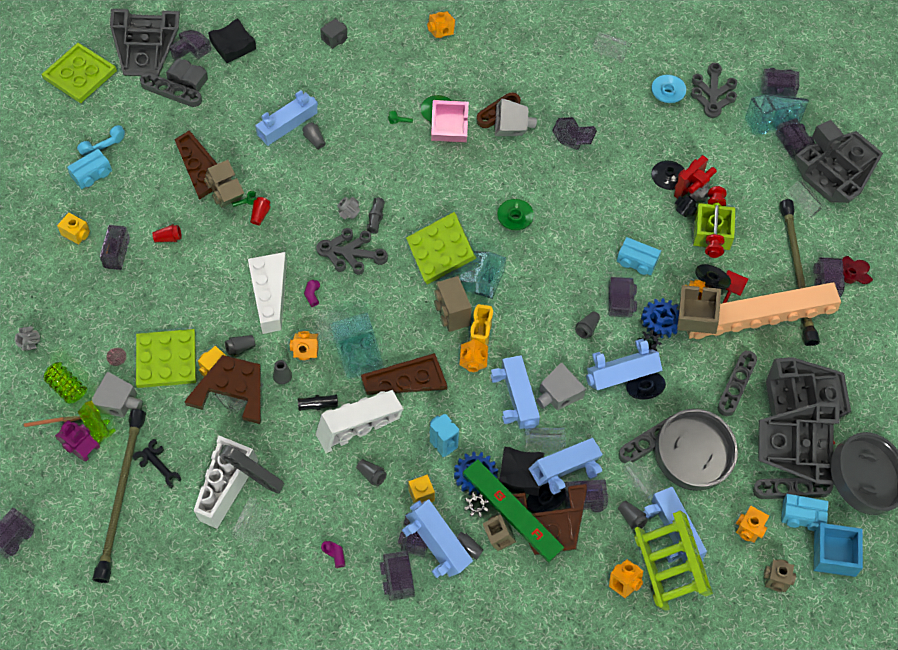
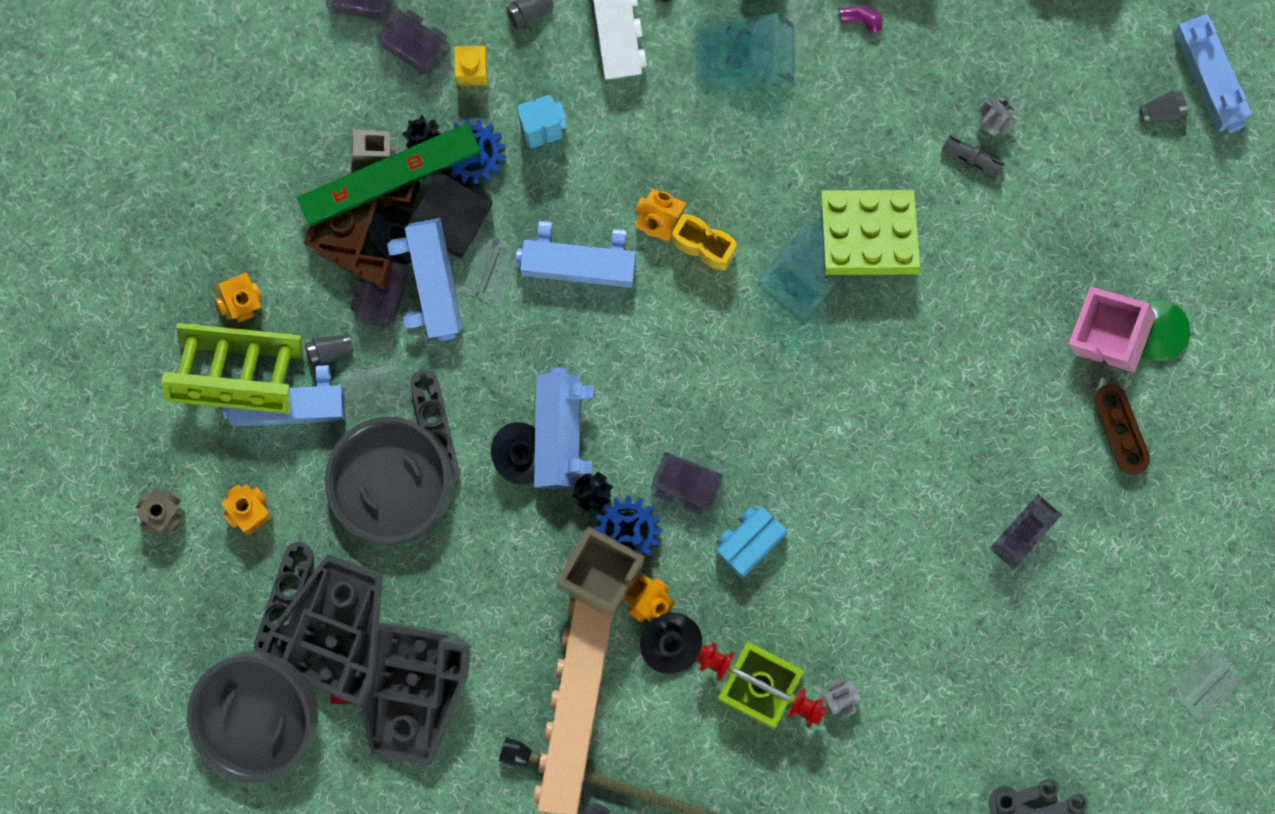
camera: 115 degrees right, 20 degrees up
(350, 250) = (918, 94): dark grey plant -> none
(394, 118) = (1162, 250): green hand -> none
(409, 376) = (663, 116): reddish brown wing -> none
(438, 538) = (384, 57): light blue brick -> none
(452, 304) = (756, 210): dark tan piece -> none
(470, 545) = (370, 103): dark grey cone -> none
(512, 119) = (1086, 439): light grey torso -> none
(516, 208) = (901, 360): green dish -> none
(560, 389) = (562, 323): light grey torso -> none
(587, 325) = (657, 412): dark grey cone -> none
(664, 178) = (884, 678): black dish -> none
(669, 83) = (1086, 733): medium azure dish -> none
(686, 206) = (819, 660): black gear -> none
(694, 174) = (859, 689): red plate -> none
(737, 284) = (650, 683): red piece -> none
(737, 383) = (481, 597): dark grey beam -> none
(804, 511) = (238, 596): medium azure brick -> none
(838, 549) = (162, 612): dark azure piece -> none

